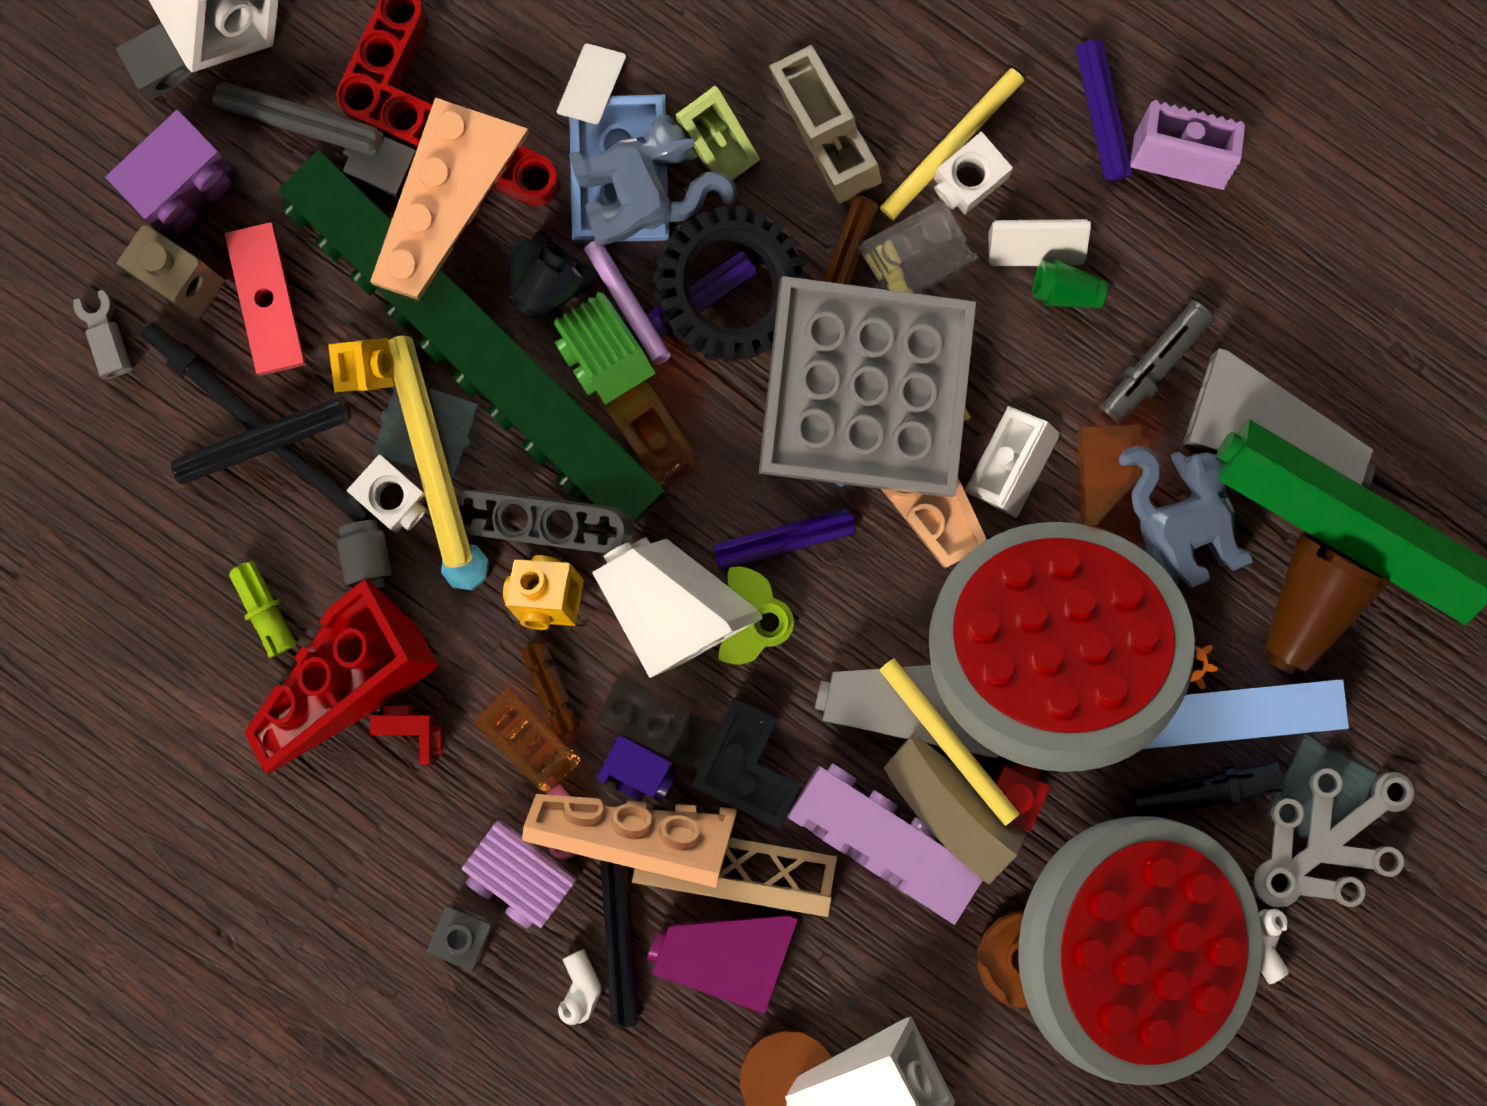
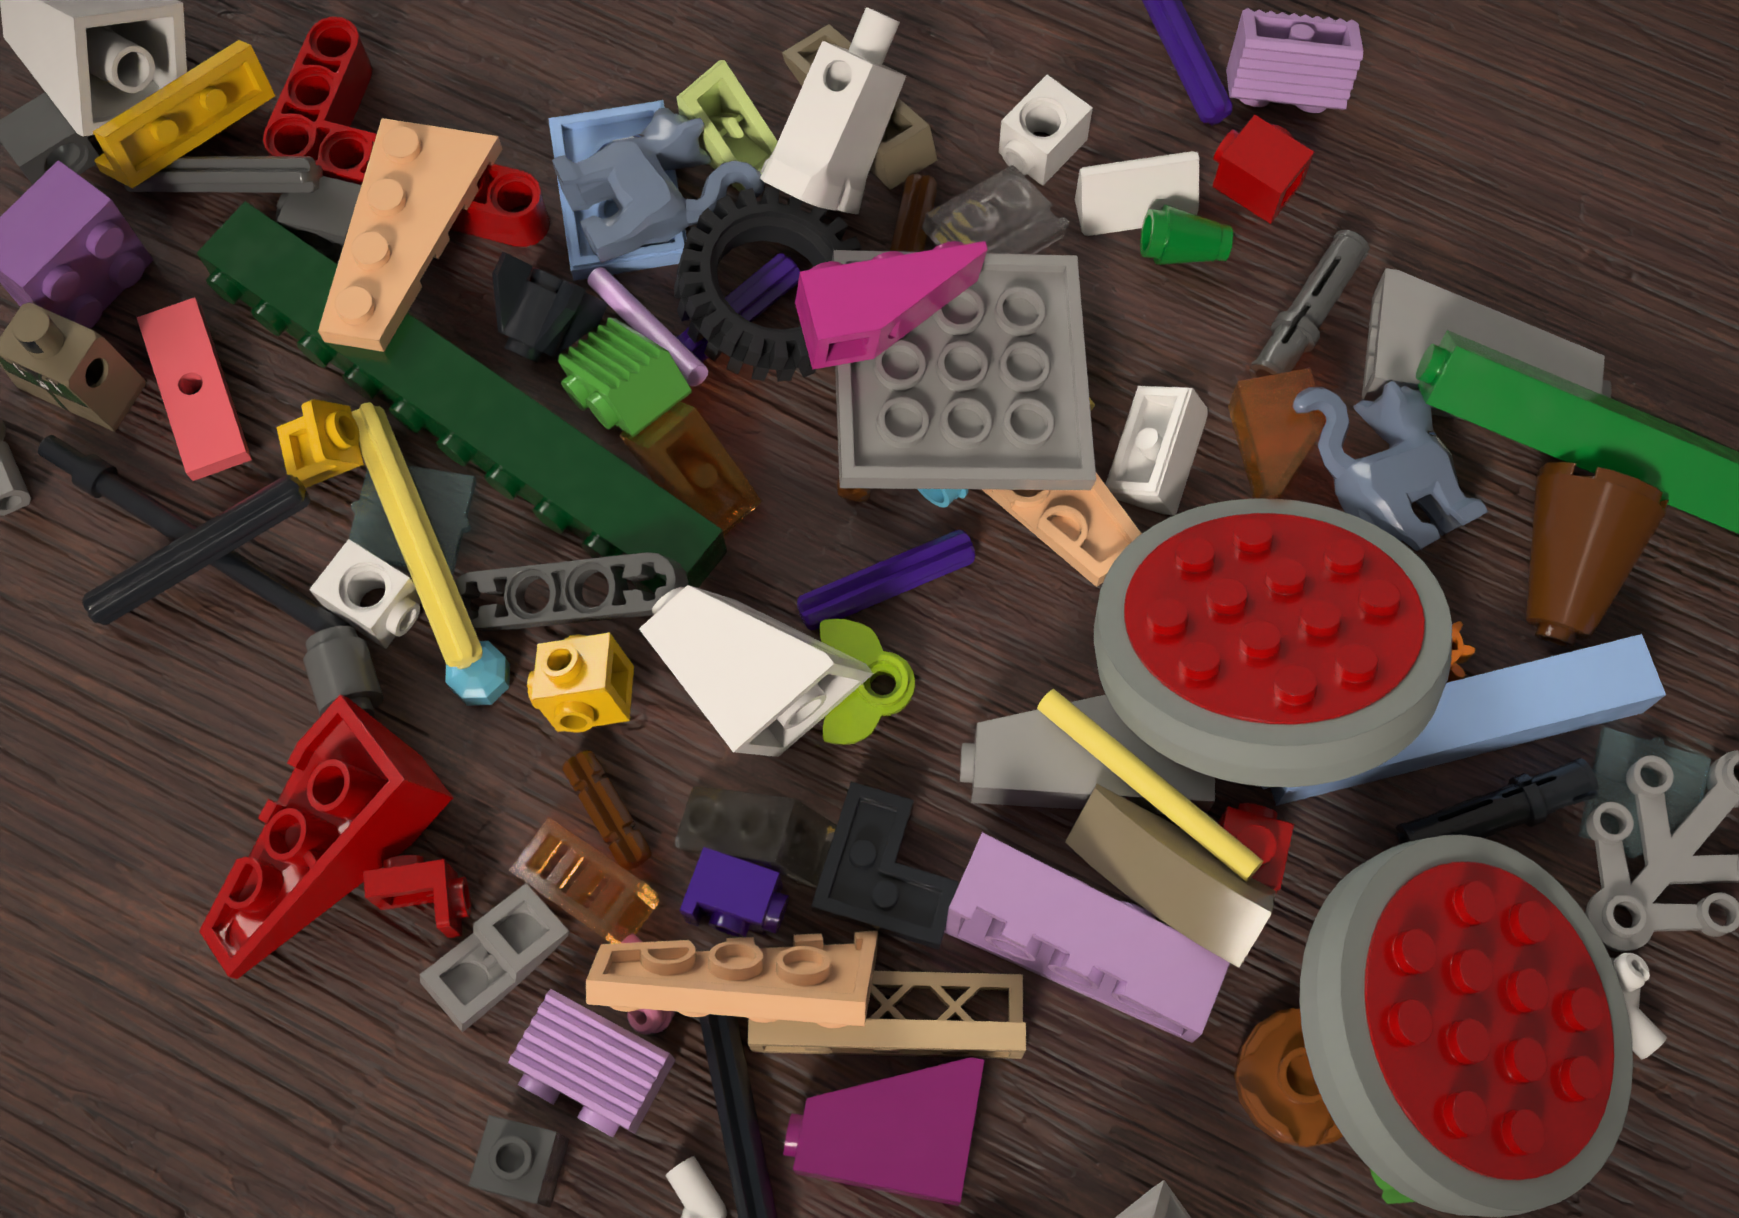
camera: 10 degrees left, 15 degrees down
(262, 609) = (213, 765): lime axle -> none
(274, 64) = (182, 115): none -> yellow panel
(457, 785) = (495, 957): none -> light grey slope
(591, 83) = (573, 101): white sticker -> none
(798, 338) = (869, 305): none -> dark pink slope
(801, 163) = (838, 120): none -> white piece
(952, 143) = (988, 140): light yellow bar -> none
(1142, 233) = (1261, 167): none -> red brick

